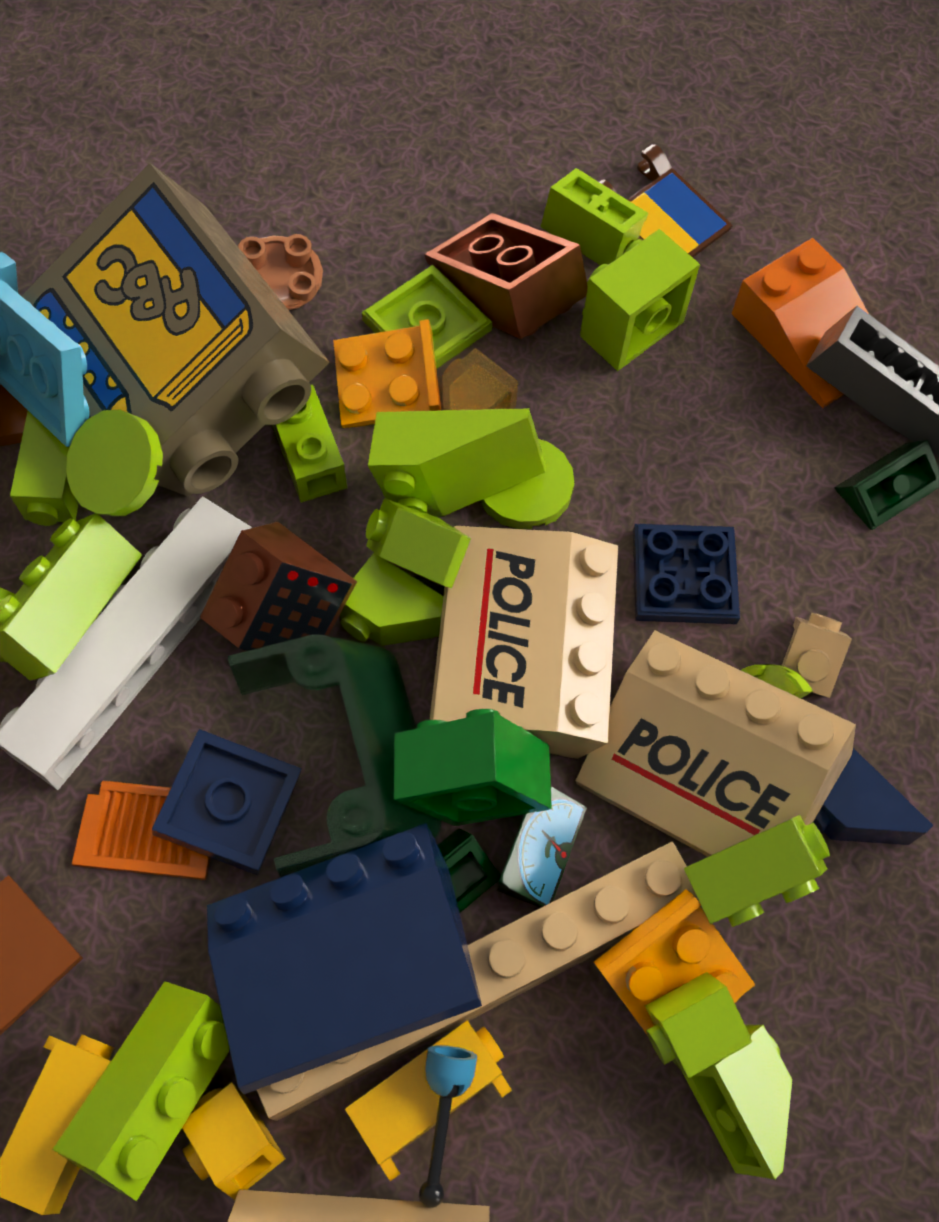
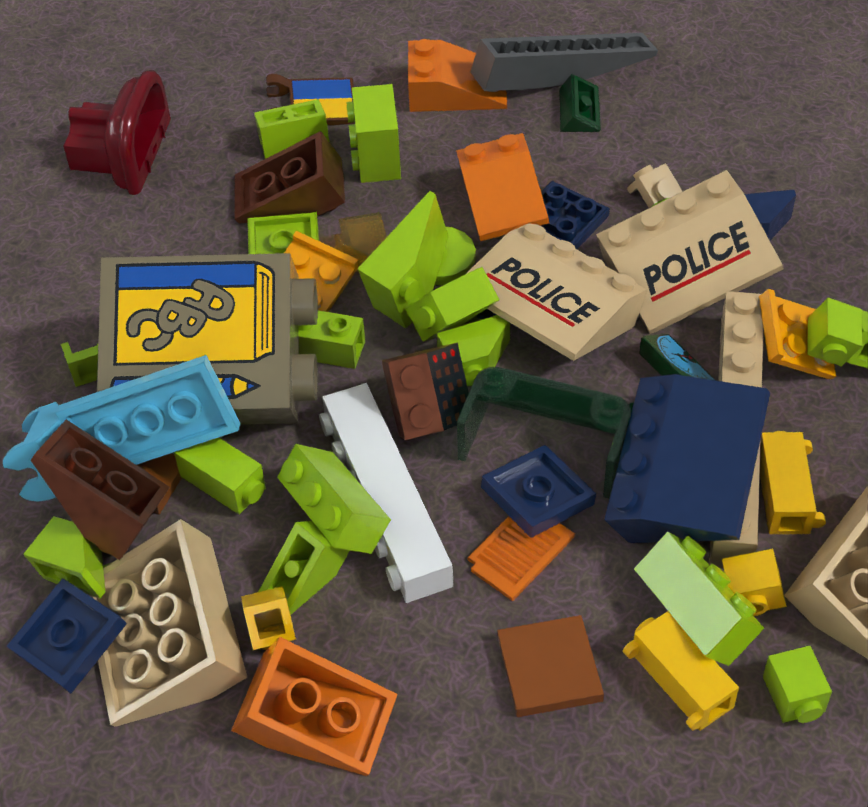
camera: 50 degrees left, 15 degrees down
(113, 463) = (276, 408): lime tile -> none
(449, 1075) = (791, 448): hinge -> none
(457, 76) = (120, 136): none -> dark red piece
(472, 769) = (619, 347): green brick -> none
(661, 481) = (501, 186): none -> orange slope
(758, 868) = (772, 254): lime brick -> none

